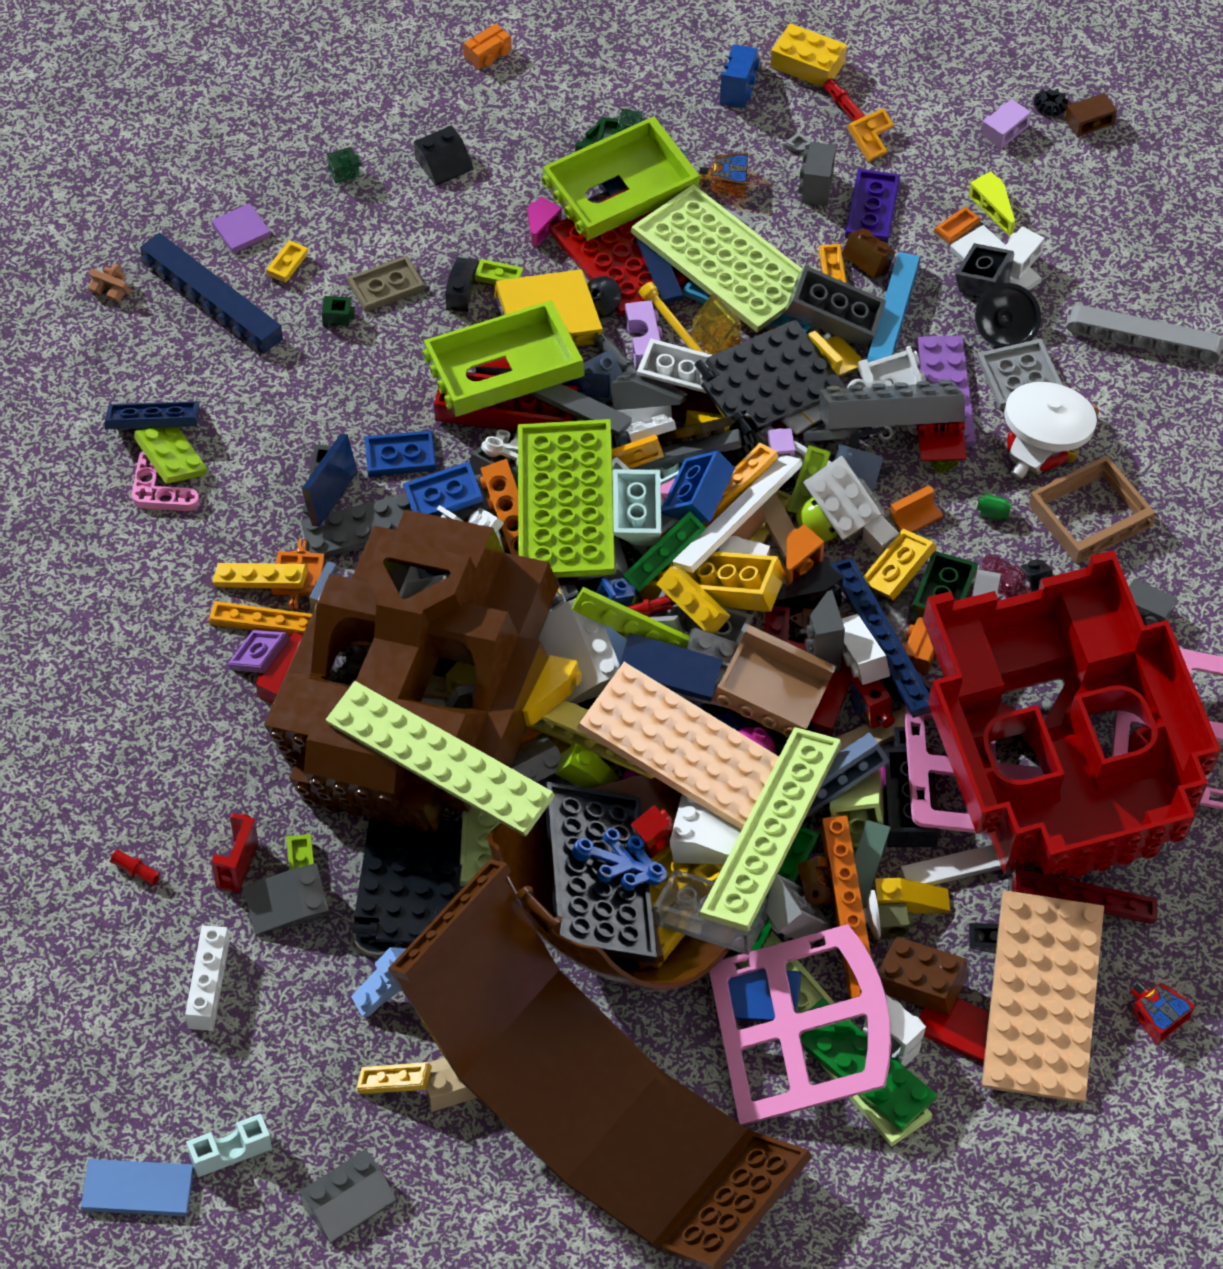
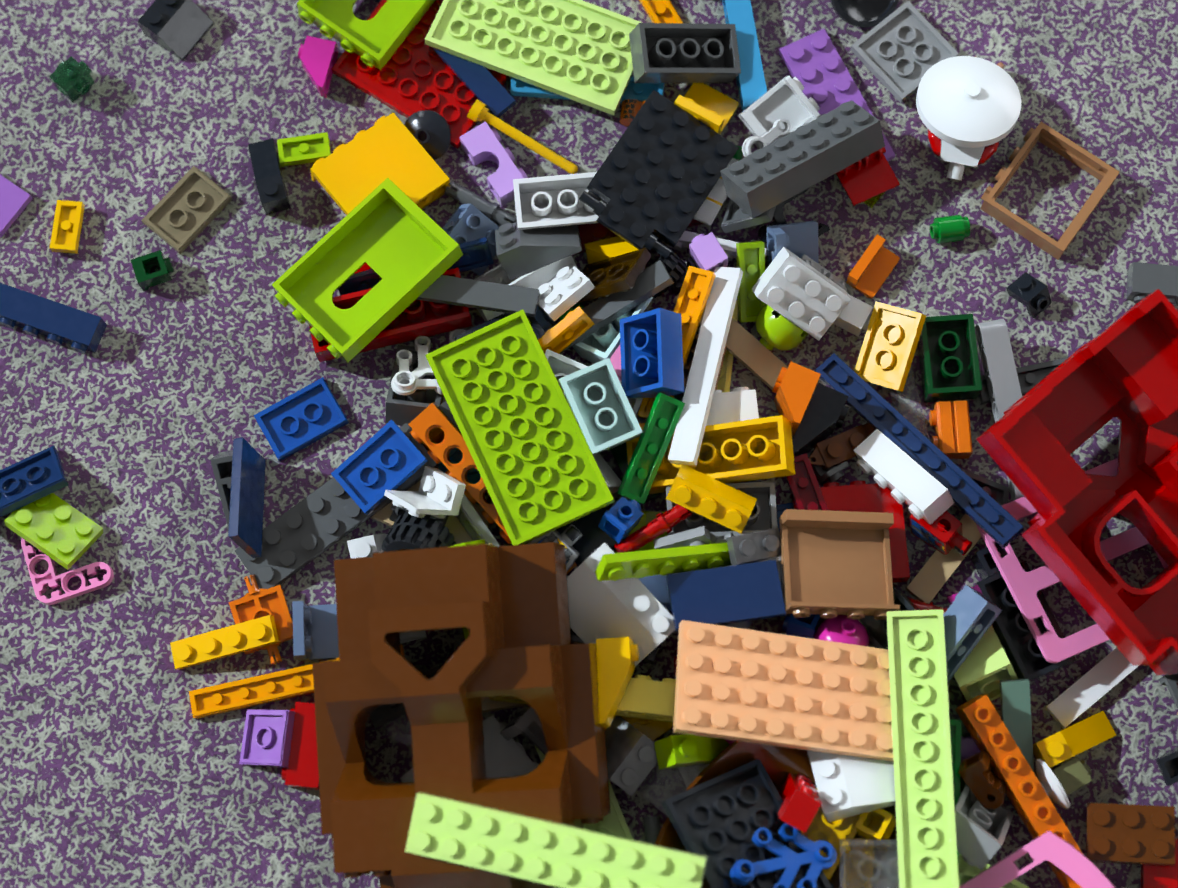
camera: 20 degrees left, 20 degrees up
(716, 326) = (569, 129): clear yellow slope -> none
(826, 631) = (868, 481): dark grey slope -> none
(1007, 572) = (996, 308): clear pink piece -> none

